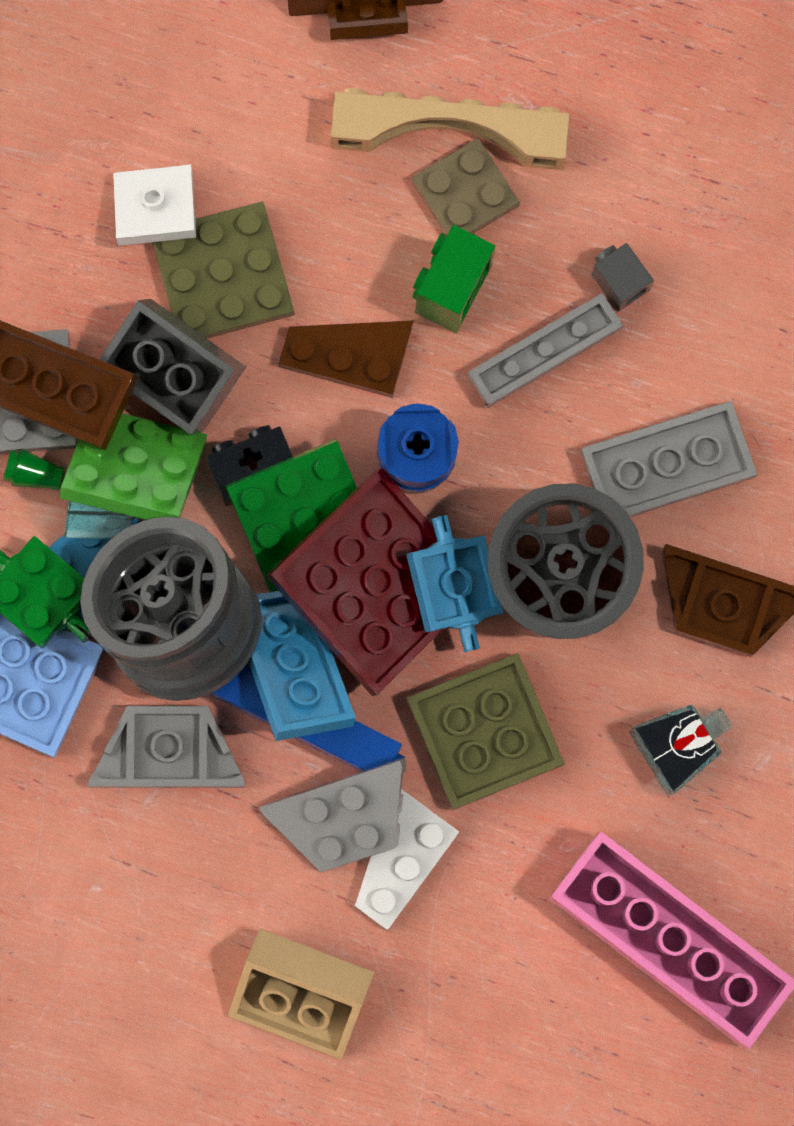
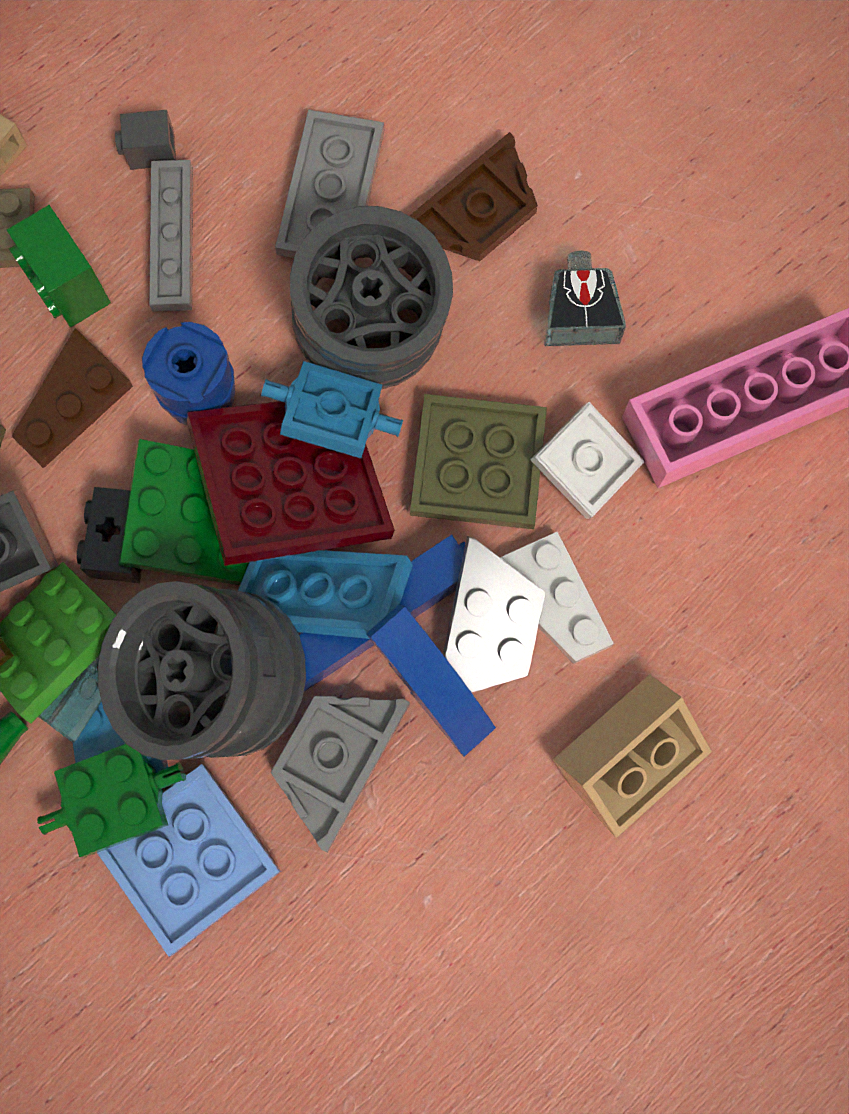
camera: 55 degrees left, 5 degrees down
(266, 794) = (431, 679): none -> blue slope
(536, 824) = (587, 460): none -> white plate

